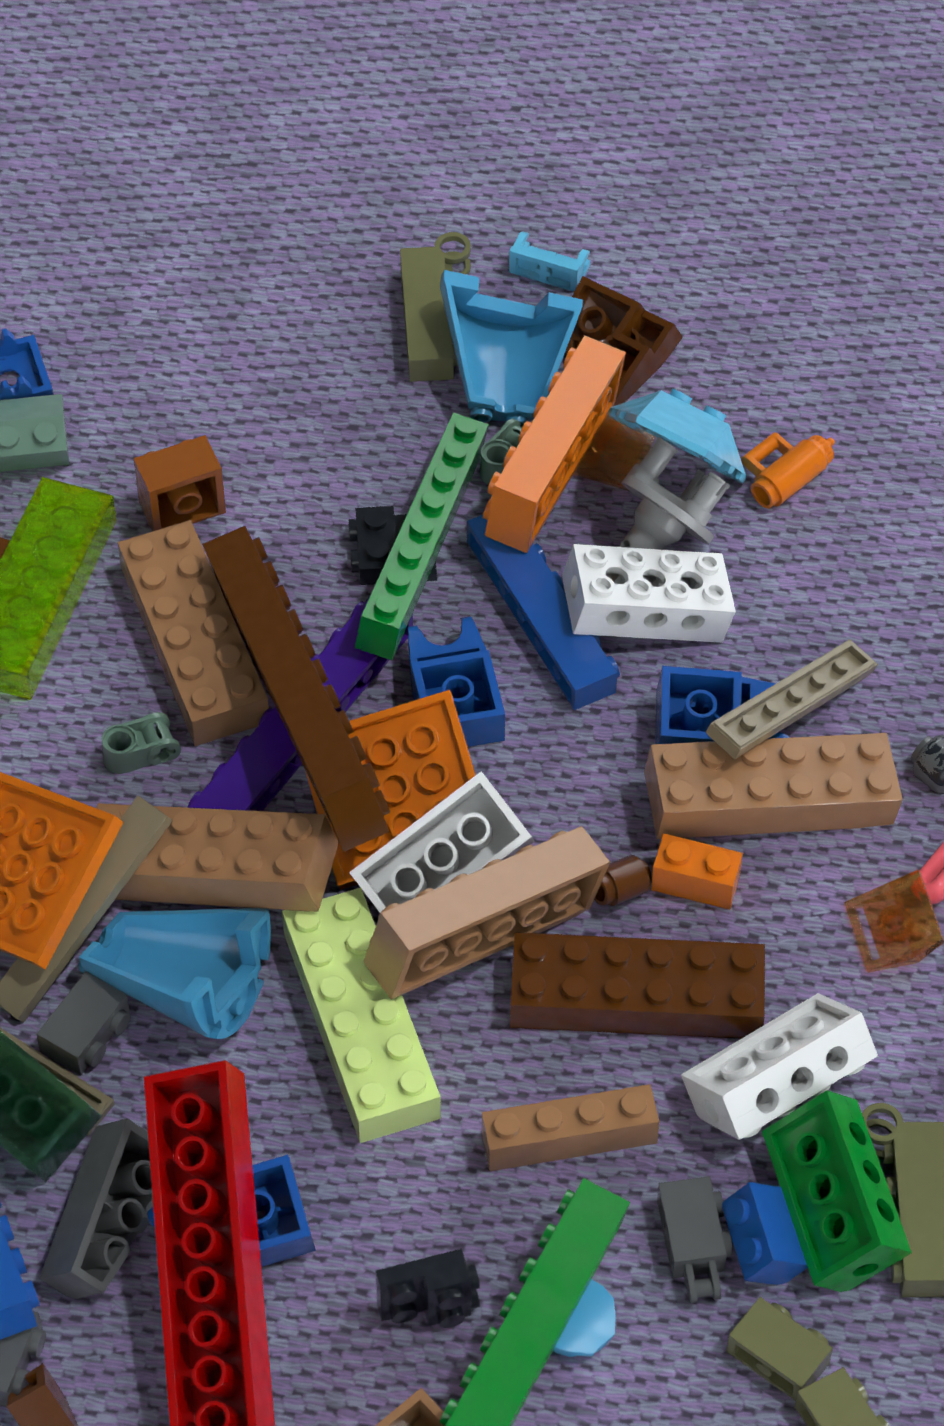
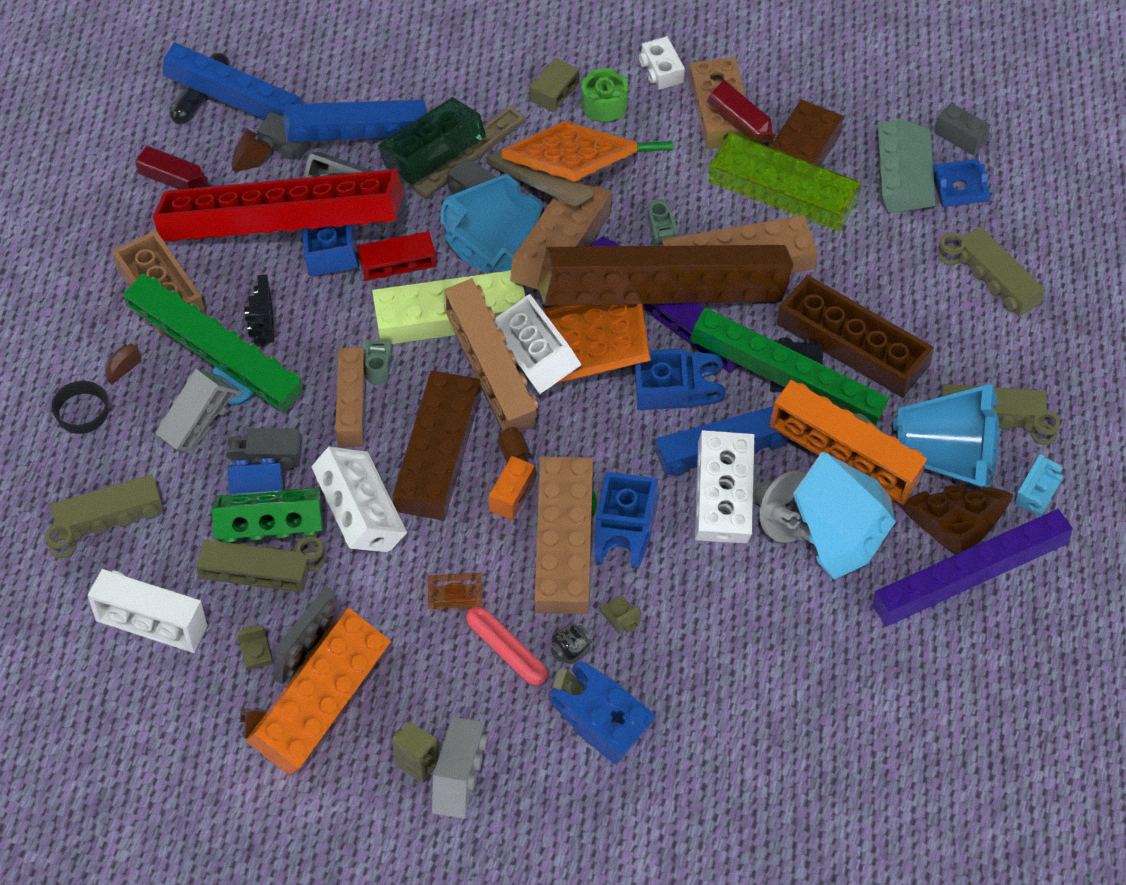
camera: 100 degrees right, 0 degrees up
(176, 322) = (996, 268): none -> olive hinge
(180, 484) = (849, 251): dark orange brick -> none
(269, 1119) = (397, 256): none -> red brick
(334, 471) = (855, 335): none -> reddish brown brick
(475, 1099) = (377, 360): none -> sand green piece
(654, 1347) = (195, 408): none -> light grey wedge
(704, 321) = (971, 567): none -> dark purple brick
(779, 1347) = (186, 478): olive brick -> none
(790, 471) = (830, 600): orange piece -> none
(791, 699) = (624, 551): dark tan tile -> none
(875, 709) = (621, 614): none -> olive bracket

